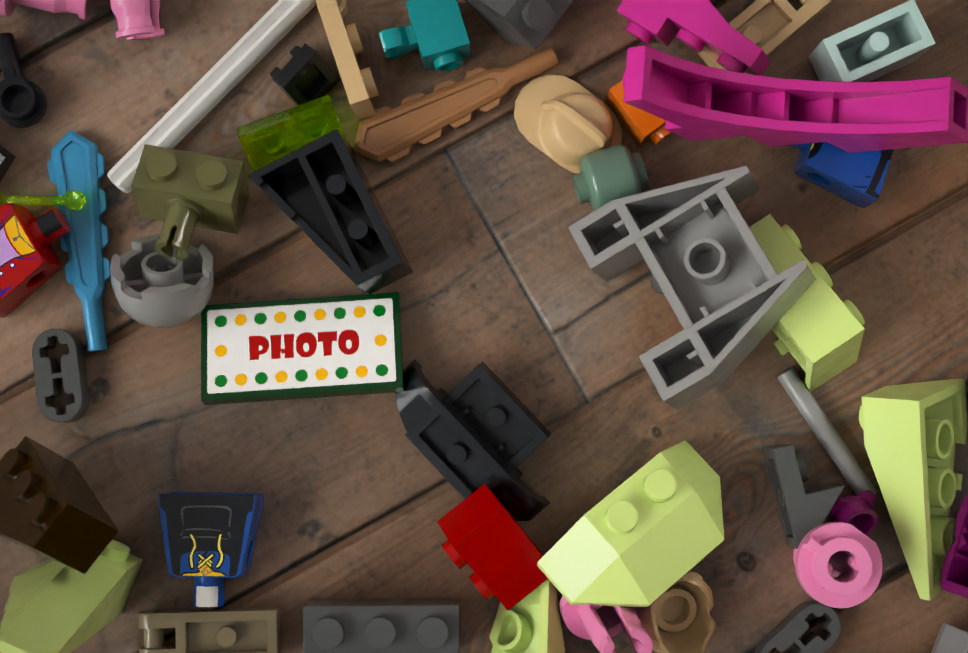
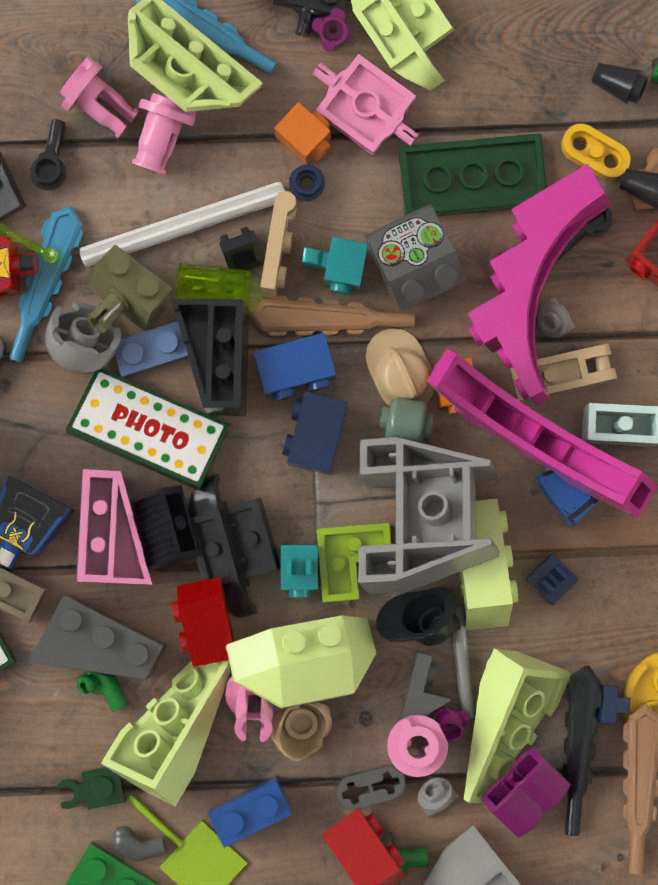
camera: 25 degrees right, 0 degrees up
(256, 252) = (150, 350): none -> medium blue plate
(319, 502) = (107, 532): none -> bright pink wedge
(385, 457) = (165, 527): none -> black brick
(442, 182) = (295, 366): none -> blue brick
(508, 247) = (316, 432): none -> dark blue brick
(575, 424) = (299, 569): none -> teal brick
(612, 380) = (339, 554): none -> lime plate
(750, 404) = (420, 616): none -> black piece
(880, 278) = (552, 579): none -> dark blue tile
(883, 612) = (436, 795): none -> light grey plate

